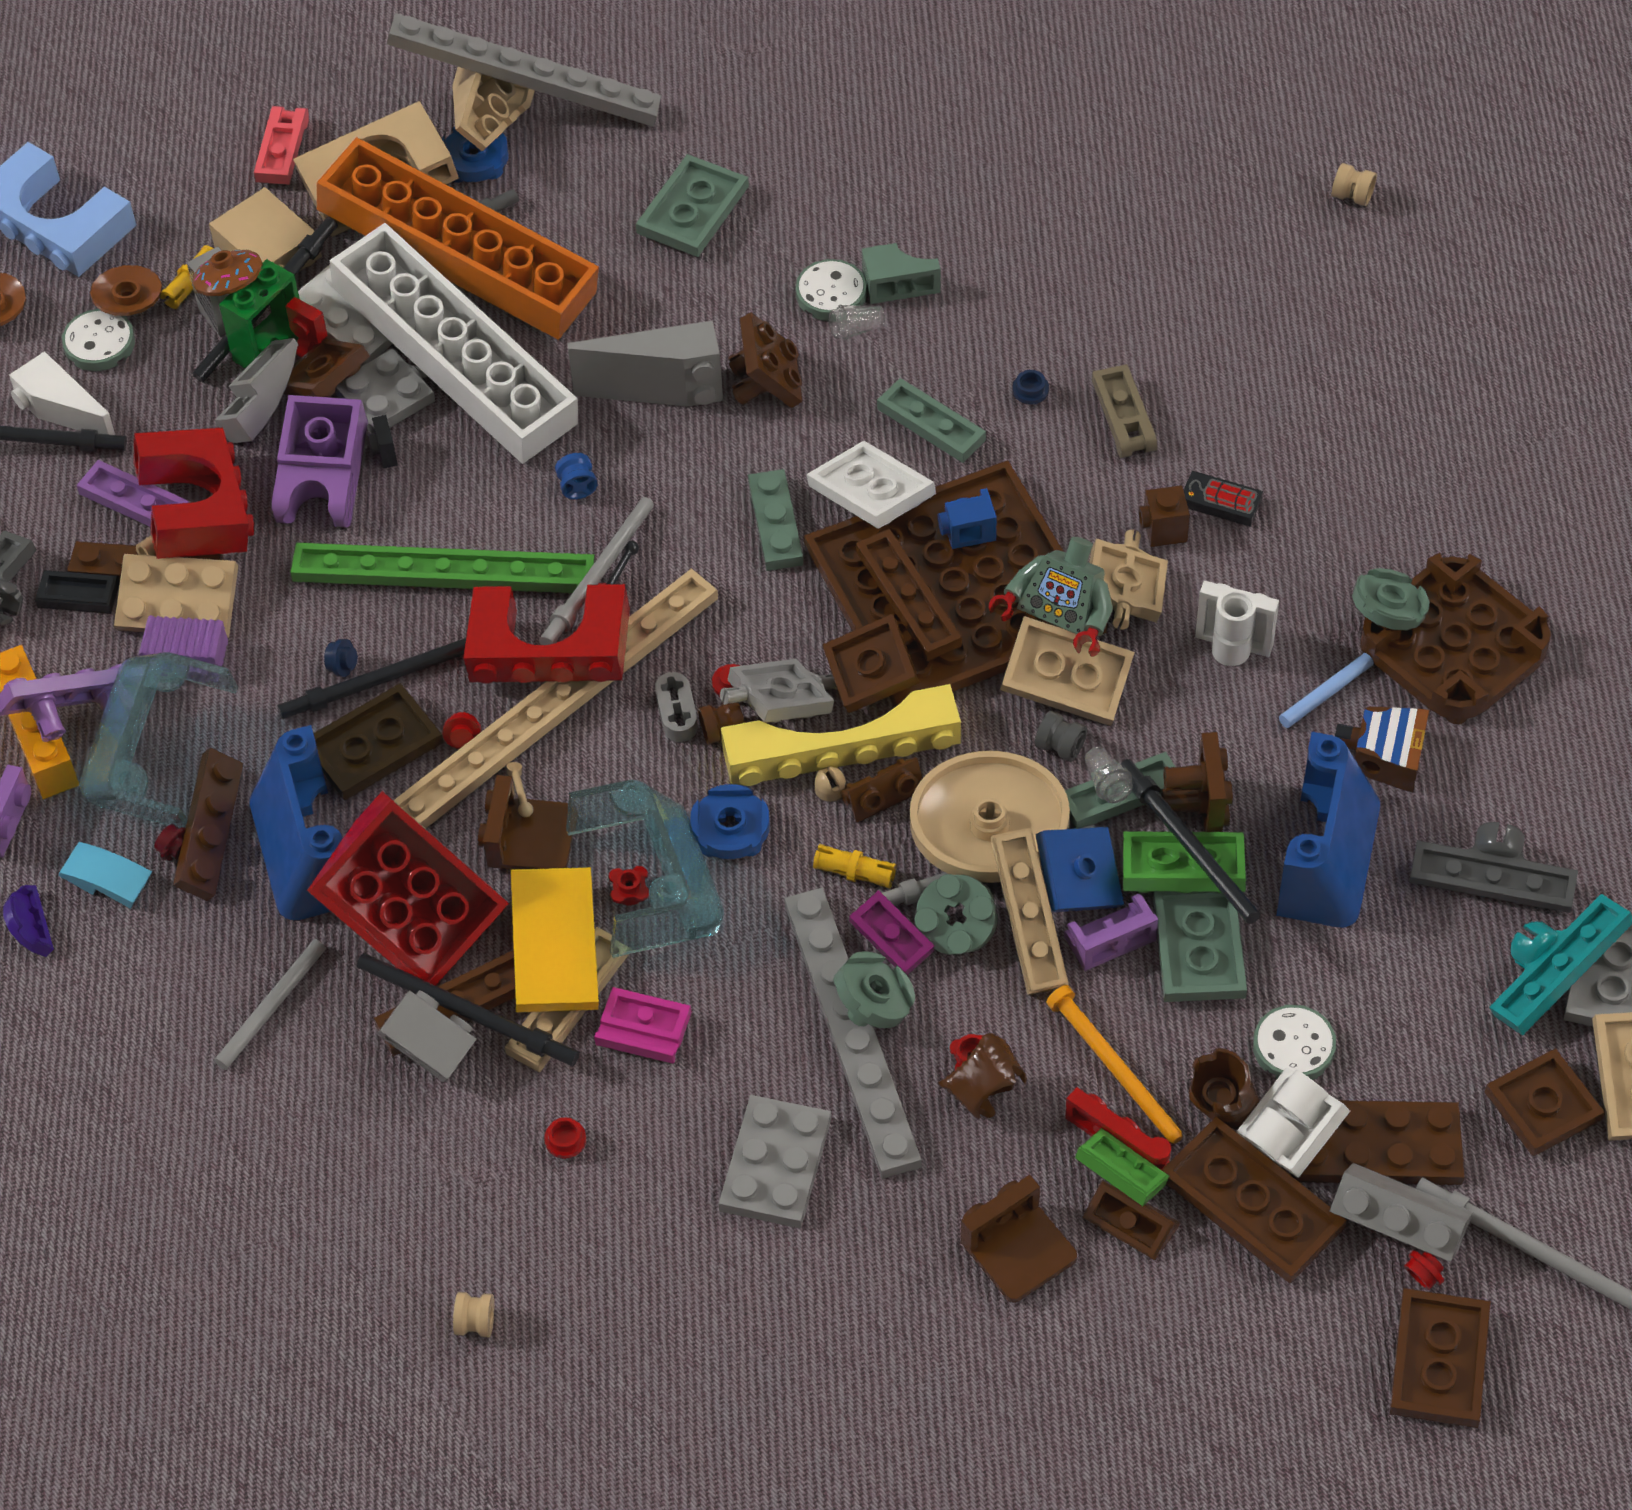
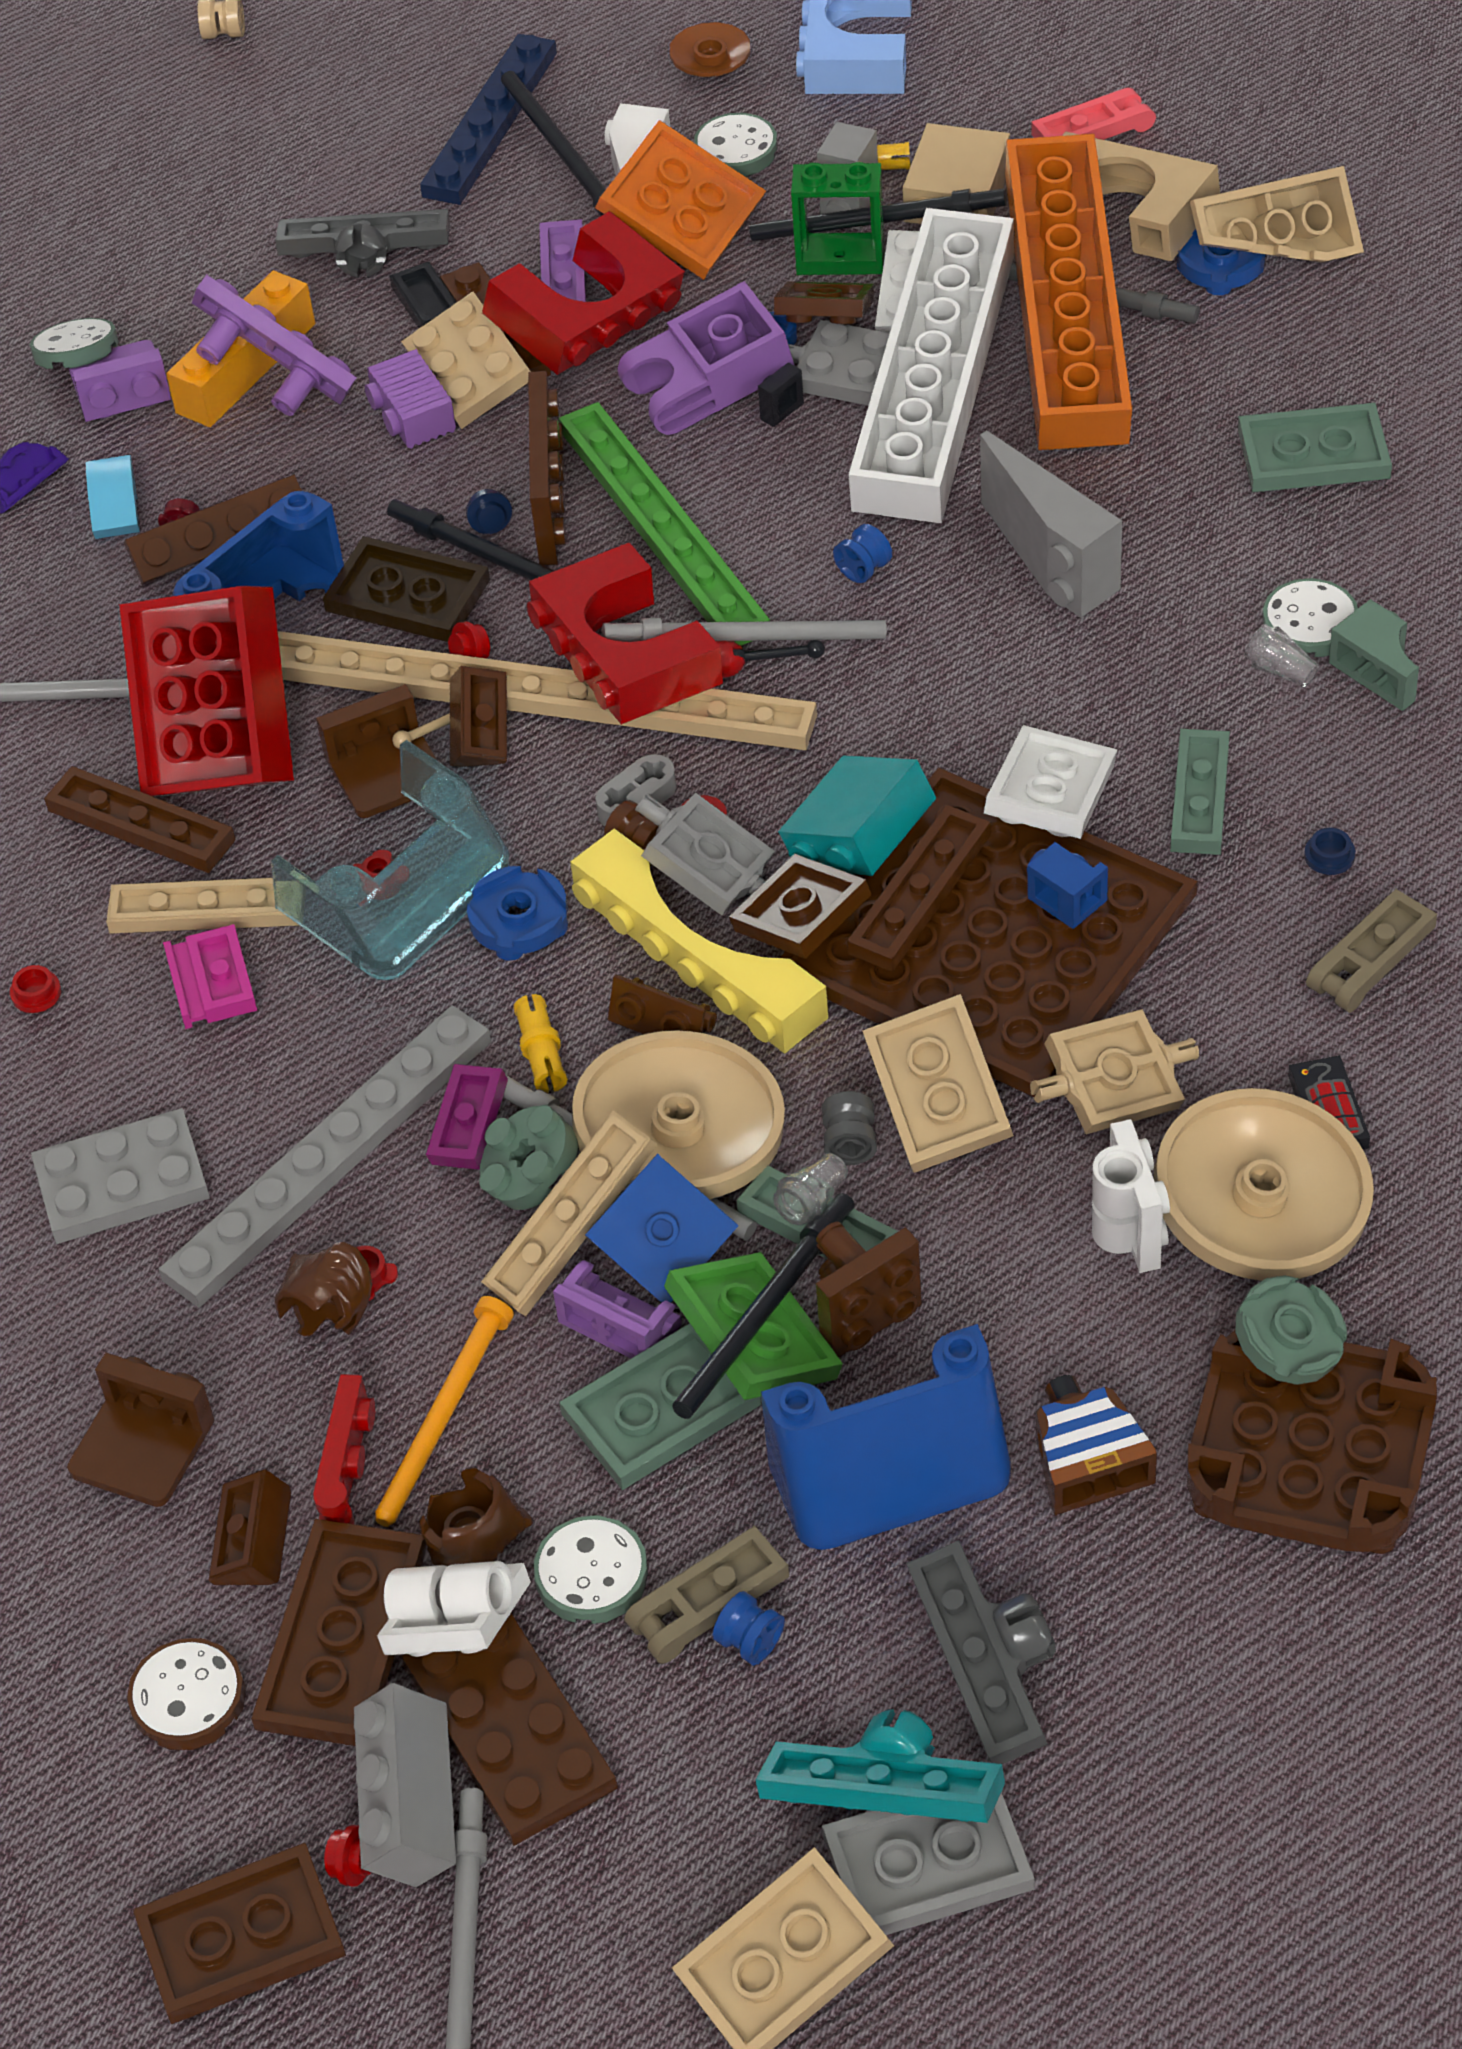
camera: 60 degrees right, 5 degrees down
(109, 775) = (255, 406): clear light blue windscreen -> none
(126, 290) = (800, 122): dark orange dish -> none
(143, 392) = (681, 199): none -> orange plate
(227, 272) = (838, 146): dark orange dish -> none
(258, 391) = (761, 269): light grey slope -> none
(307, 324) = (860, 252): red plate -> none
(344, 600) = (546, 468): none -> reddish brown plate
(427, 1034) = (64, 809): light grey brick -> none
(523, 69) = (1339, 216): light grey plate -> none
(536, 1040) = (123, 897): black bar -> none
(538, 759) = (478, 717): none -> reddish brown slope
(554, 940) = (231, 854): yellow tile -> none
(768, 363) = (1141, 611): reddish brown plate -> none
(775, 520) = (961, 731): sand green plate -> none
(816, 595) = (859, 813): none -> teal brick
(823, 787) = (643, 964): tan hinge -> none
(855, 985) = (367, 1165): sand green plate -> none
(1062, 592) = (1018, 1008): sand green torso -> none
(1122, 1167) = (289, 1477): bright green plate -> none
(1165, 516) = (1243, 1057): reddish brown brick -> none
(1237, 1310) = (186, 1693): none -> white tile
(1272, 550) = (1264, 1184): none -> tan dish
(1326, 690) = (1129, 1349): light blue bar -> none
(1358, 989) = (703, 1591): none -> dark tan plate
(1400, 980) = (748, 1628): none -> blue wheel
(1544, 1102) = (677, 1870): reddish brown plate -> none

